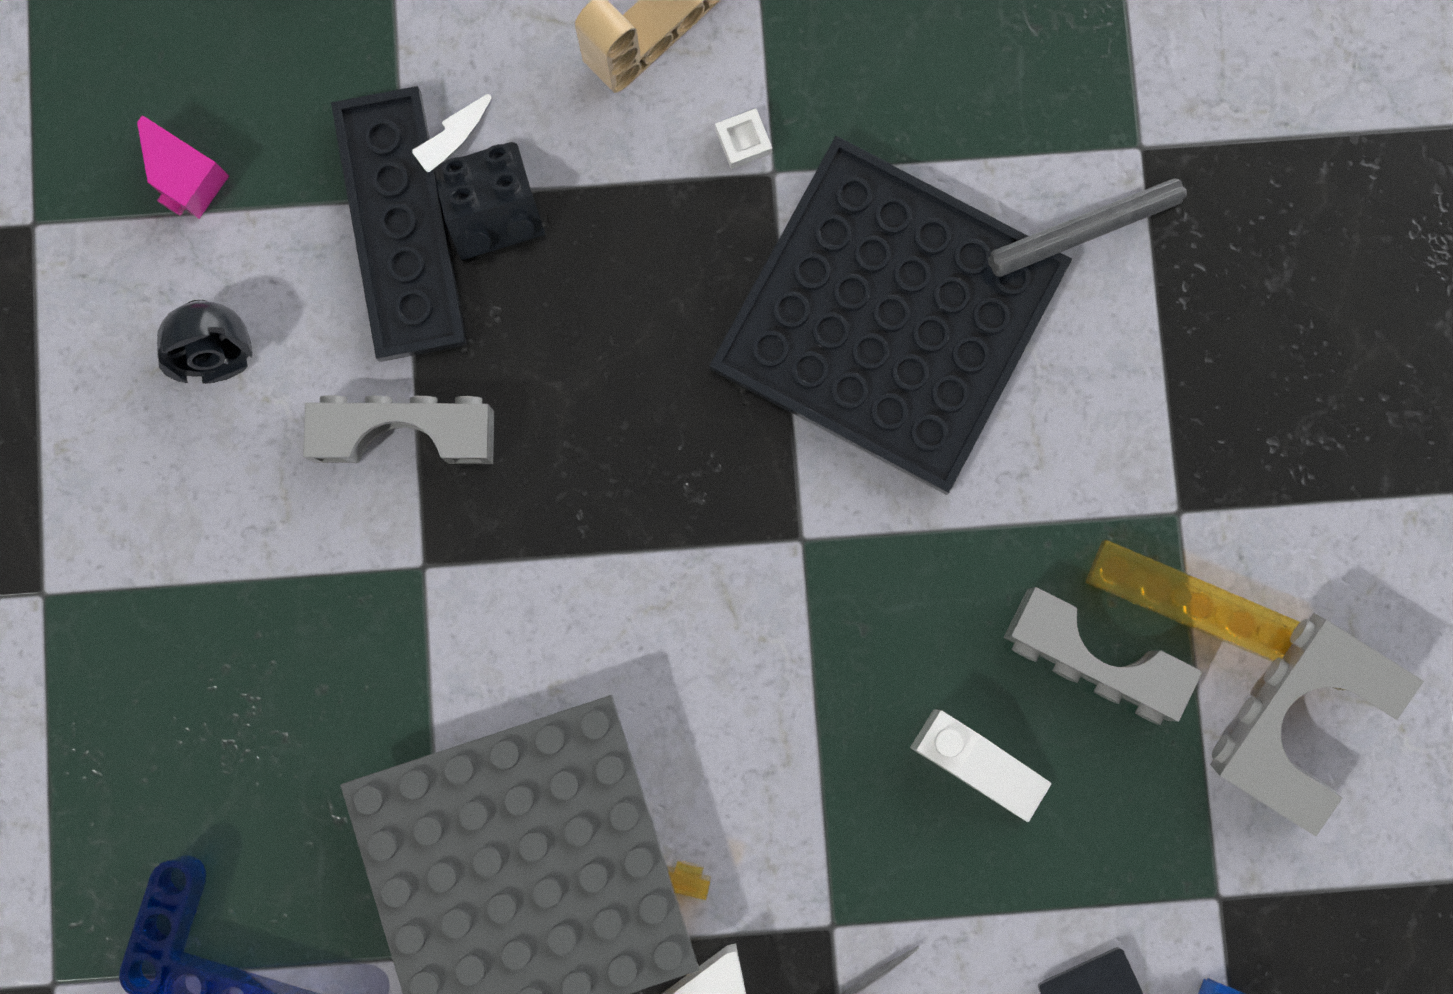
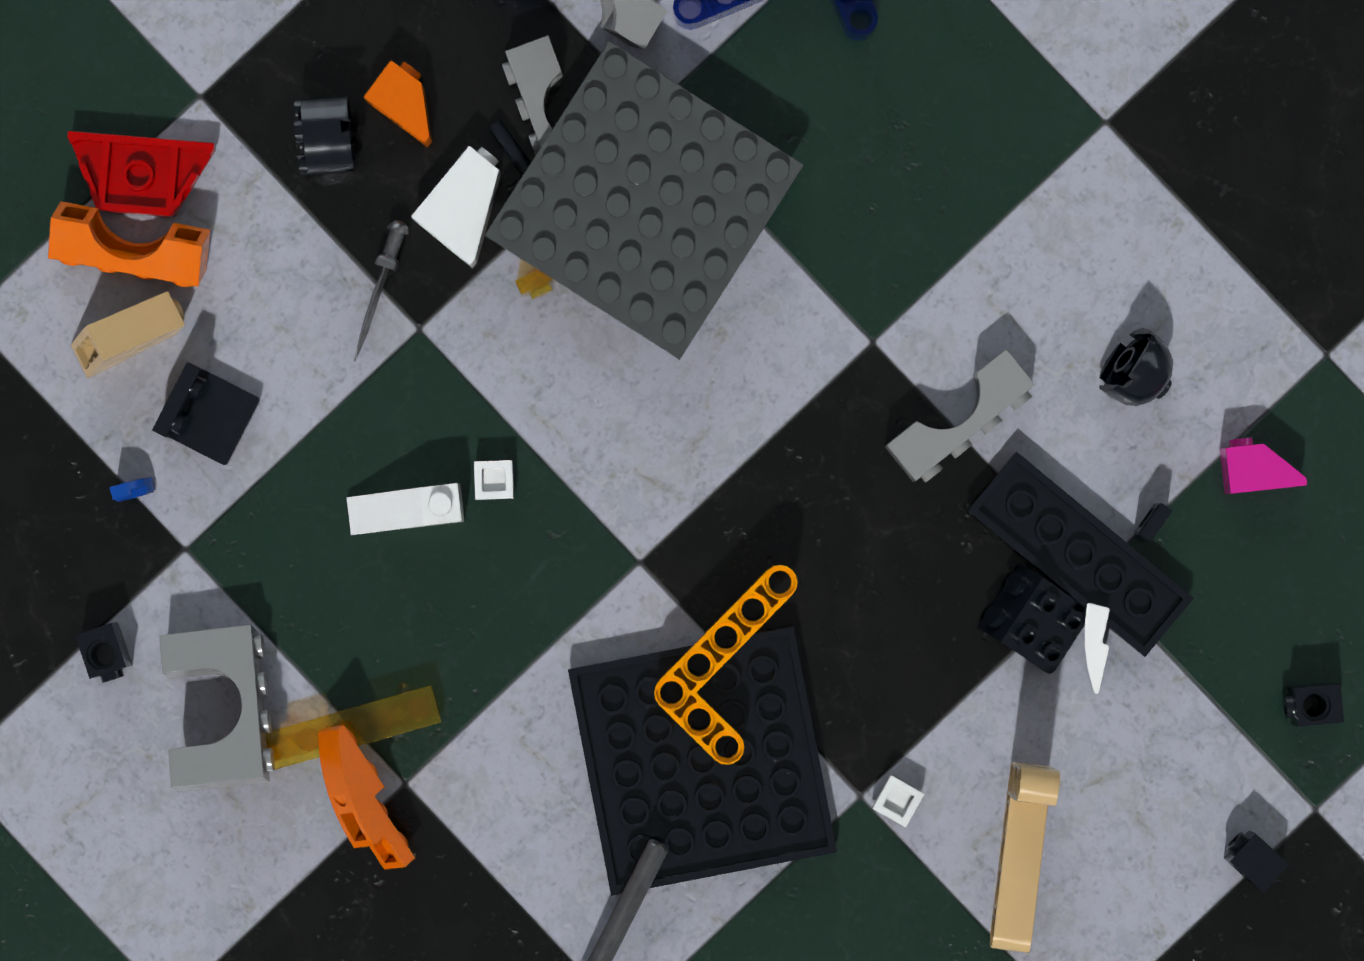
camera: 145 degrees right, 5 degrees up
(309, 197) = (1152, 522): none -> black tile
(800, 389) = (718, 657): none -> light orange beam
(877, 725) = (494, 479): none -> white plate
(1154, 682) = (335, 653): light grey arch -> none
(1243, 540) = (352, 791): none -> orange slope
(1391, 877) = (92, 639): none -> black brick

